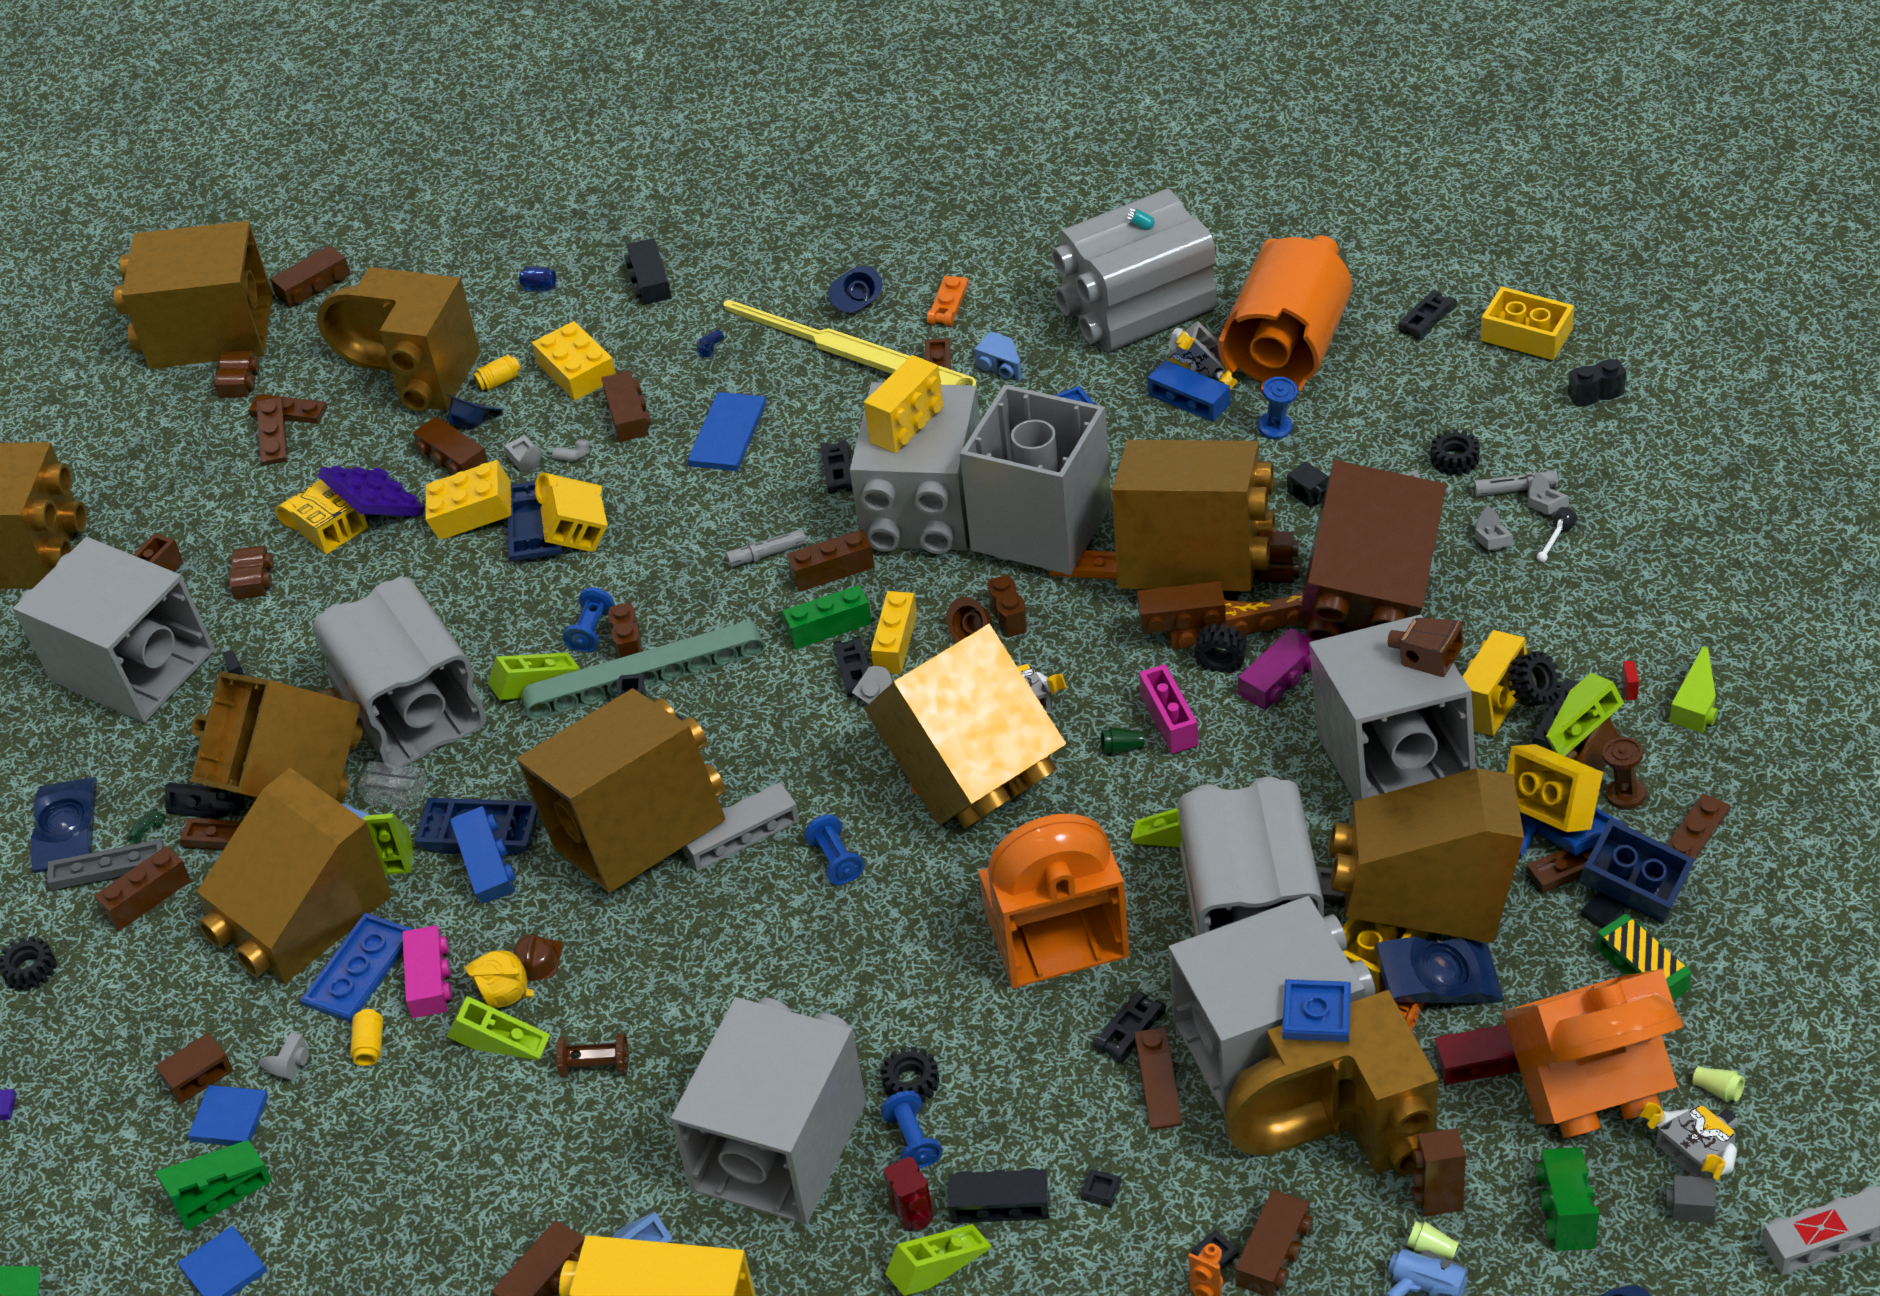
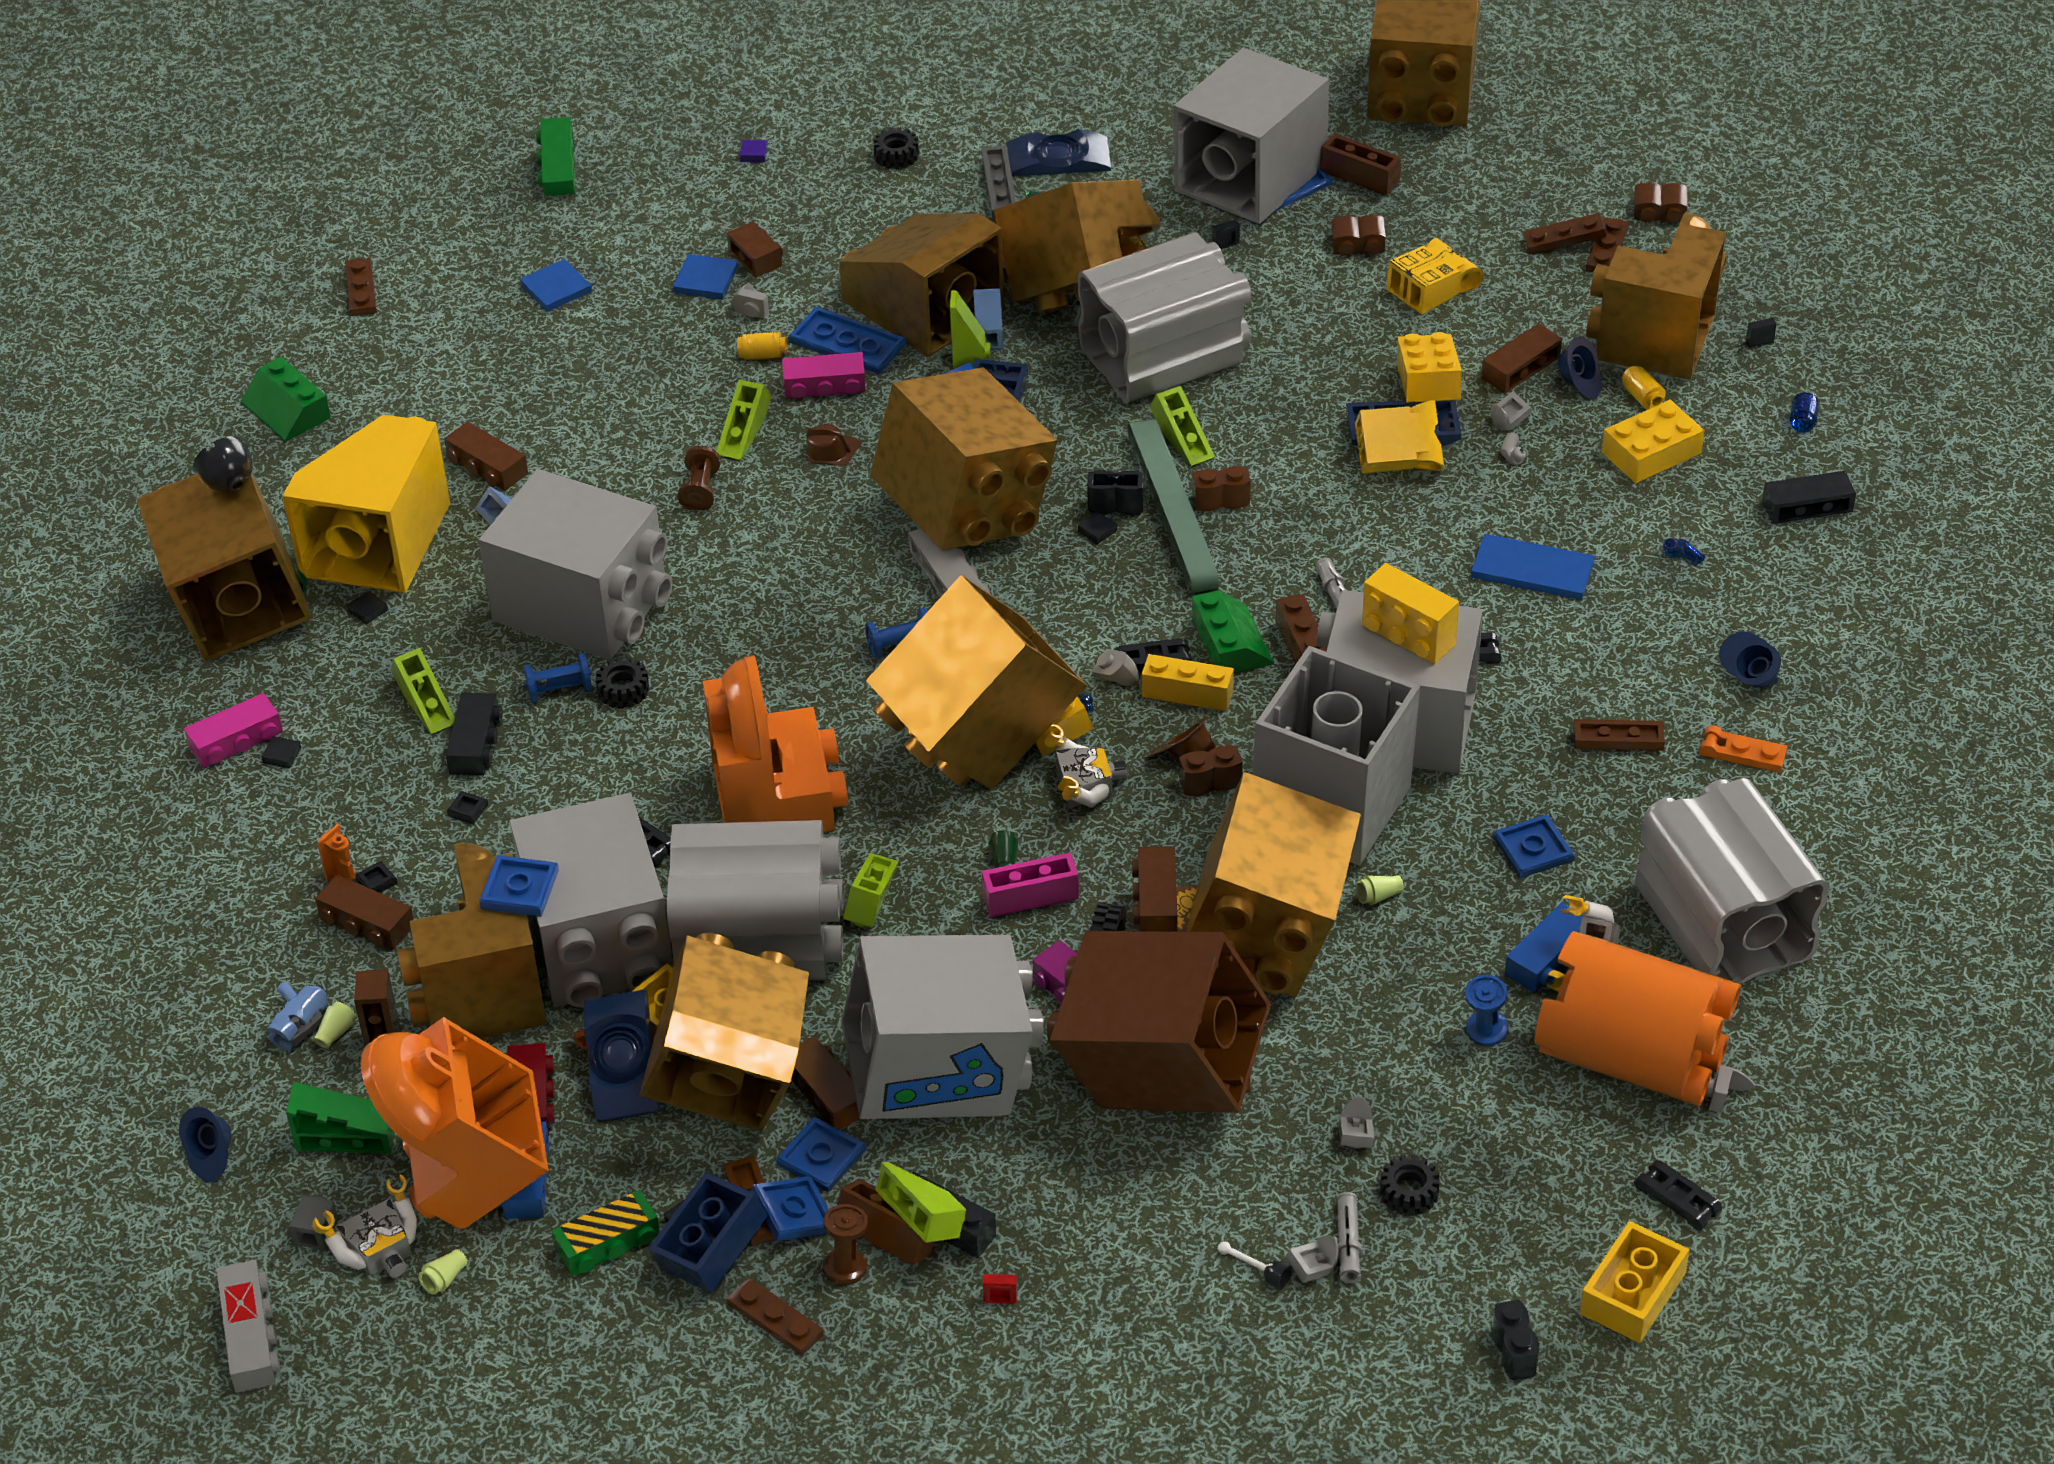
camera: 90 degrees right, 0 degrees up
(142, 888) = (956, 196): reddish brown brick -> none
(195, 294) = (1750, 146): pearl gold brick -> none
(212, 1182) = (627, 263): green wedge -> none
(310, 276) = (1818, 242): reddish brown brick -> none
(371, 491) = (1448, 296): dark purple plate -> none
(392, 785) = (1053, 343): clear brick -> none
(499, 978) = (793, 413): yellow helmet -> none
(582, 635) = (1227, 458): blue hose -> none
(626, 406) = (1575, 482): reddish brown brick -> none
(843, 344) = (1643, 672): light yellow piece -> none
(908, 1194) = (480, 665): dark red brick -> none
(999, 356) = (1628, 786): medium blue slope -> none
(1141, 219) = (1754, 847): teal piece -> none
(1307, 484) = (1368, 1039): black brick -> none
(1429, 644) = (951, 1007): reddish brown torso -> none
(1488, 680) = (1004, 1151): yellow brick -> none
(1490, 531) = (1261, 1199): light grey plate -> none
(1545, 677) = (967, 1172): black tyre -> none
(1554, 787) = (823, 1164): yellow brick -> none
(1696, 697) = (965, 1347): lime slope -> none

